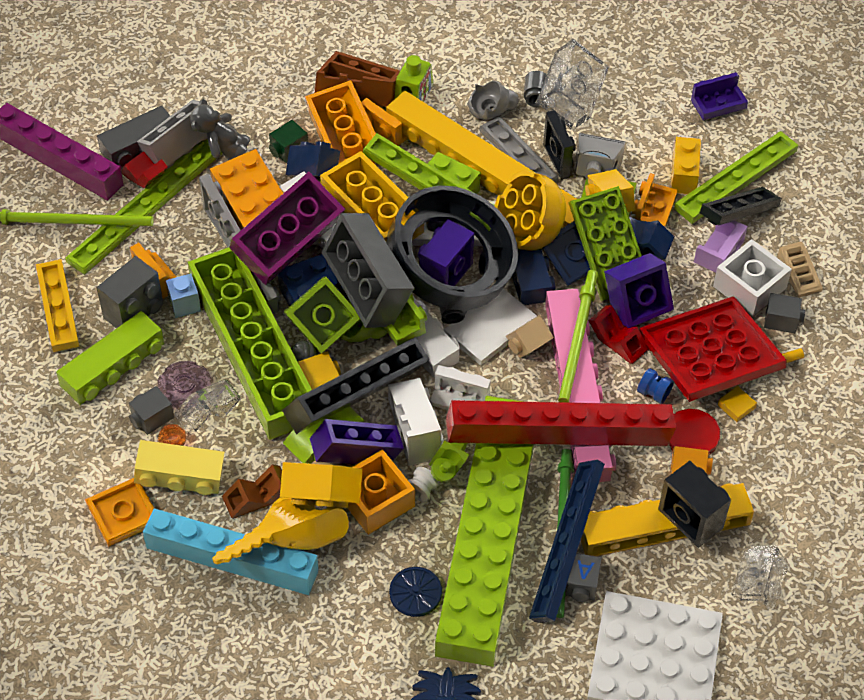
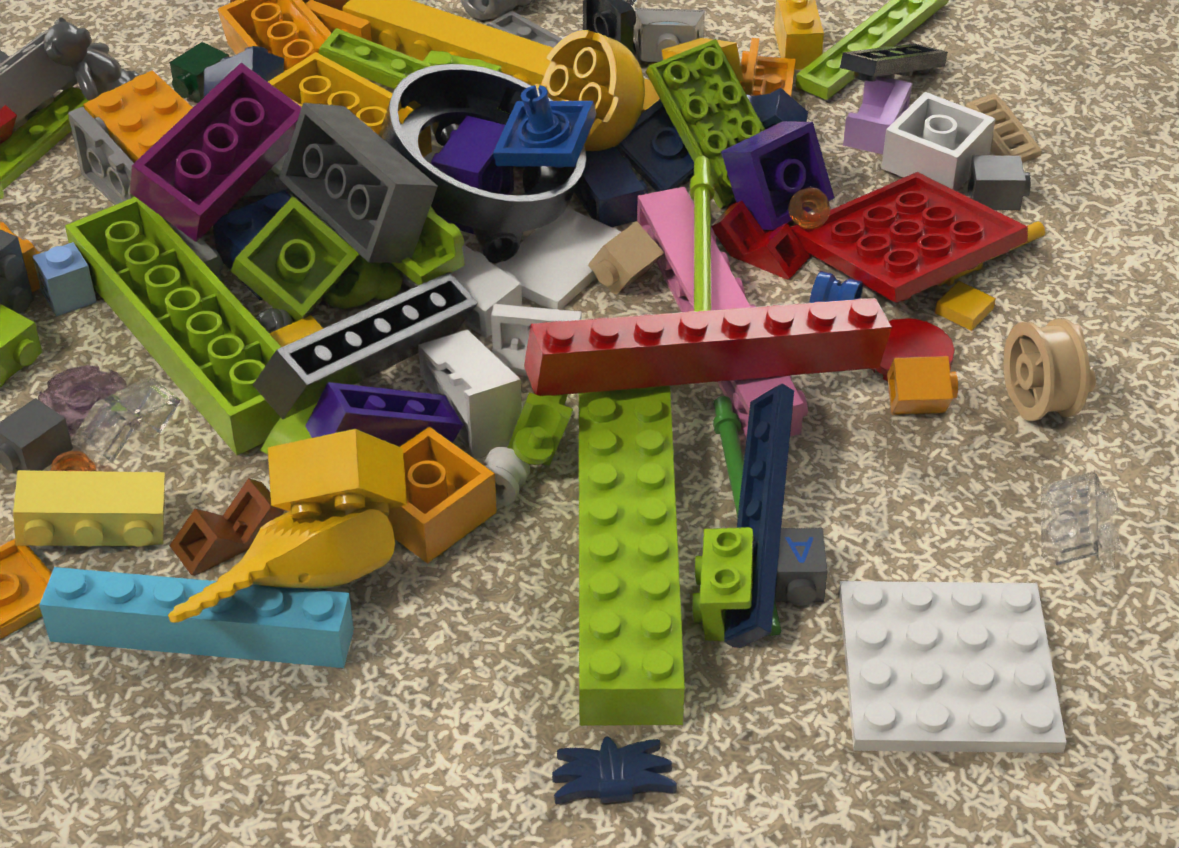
camera: 10 degrees left, 10 degrees down
(415, 591) = (525, 632): dark blue wheel -> none
(493, 244) = (544, 131): none -> blue plate
(536, 579) = (724, 578): none -> lime bracket
(645, 525) = (910, 466): yellow brick -> none
(656, 311) = (809, 198): none -> clear orange plate
(694, 503) = (953, 420): black brick -> none
(770, 467) = (1047, 369): none -> tan wheel

